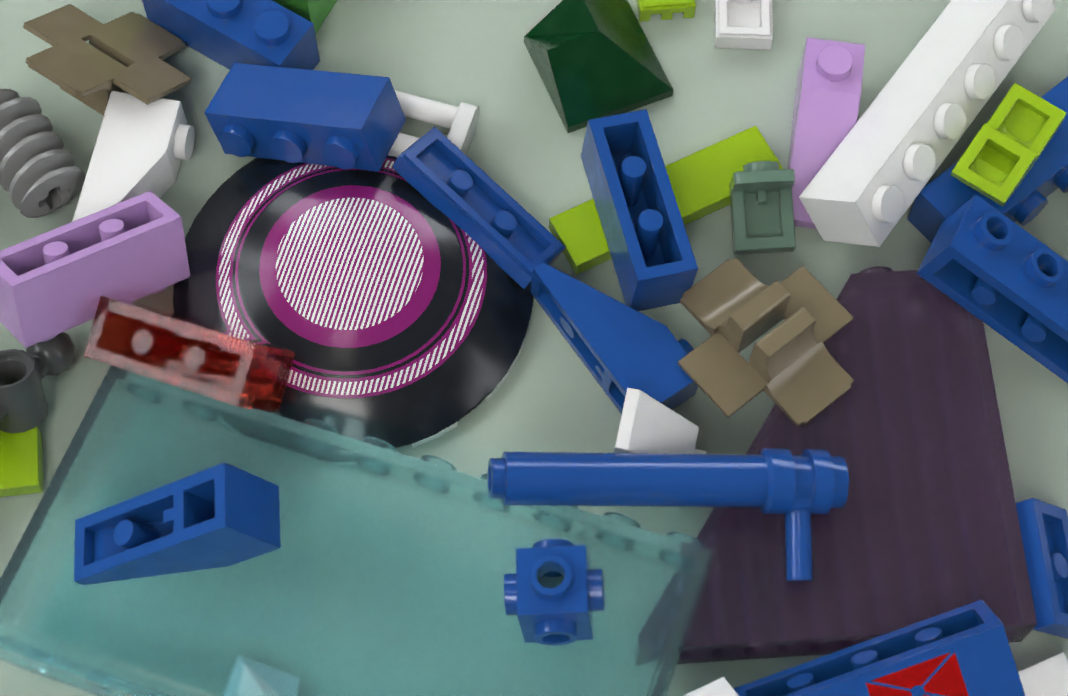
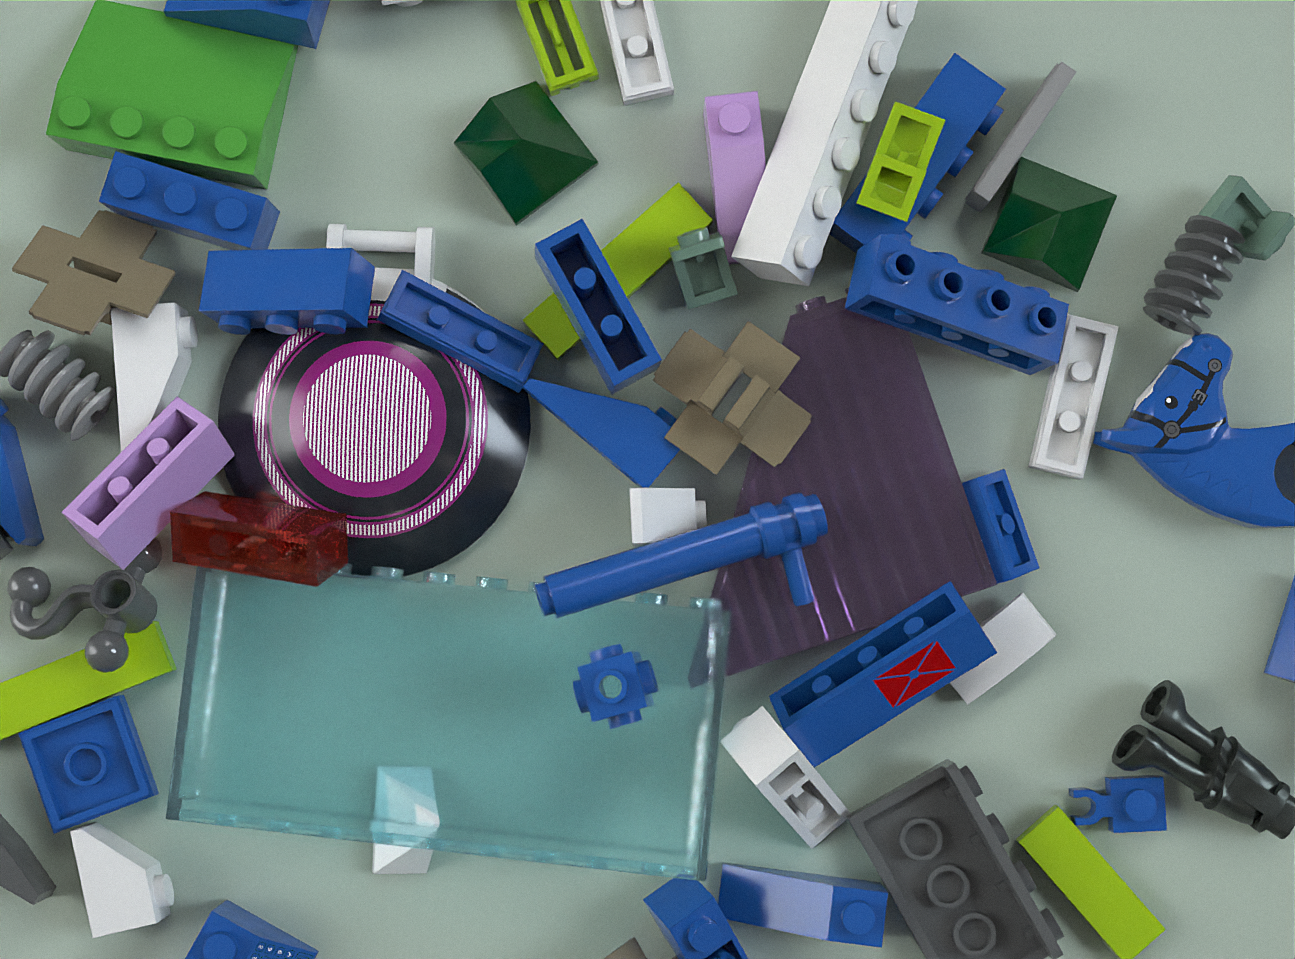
camera: 10 degrees left, 20 degrees up
(180, 527) = (302, 701): blue slope -> none

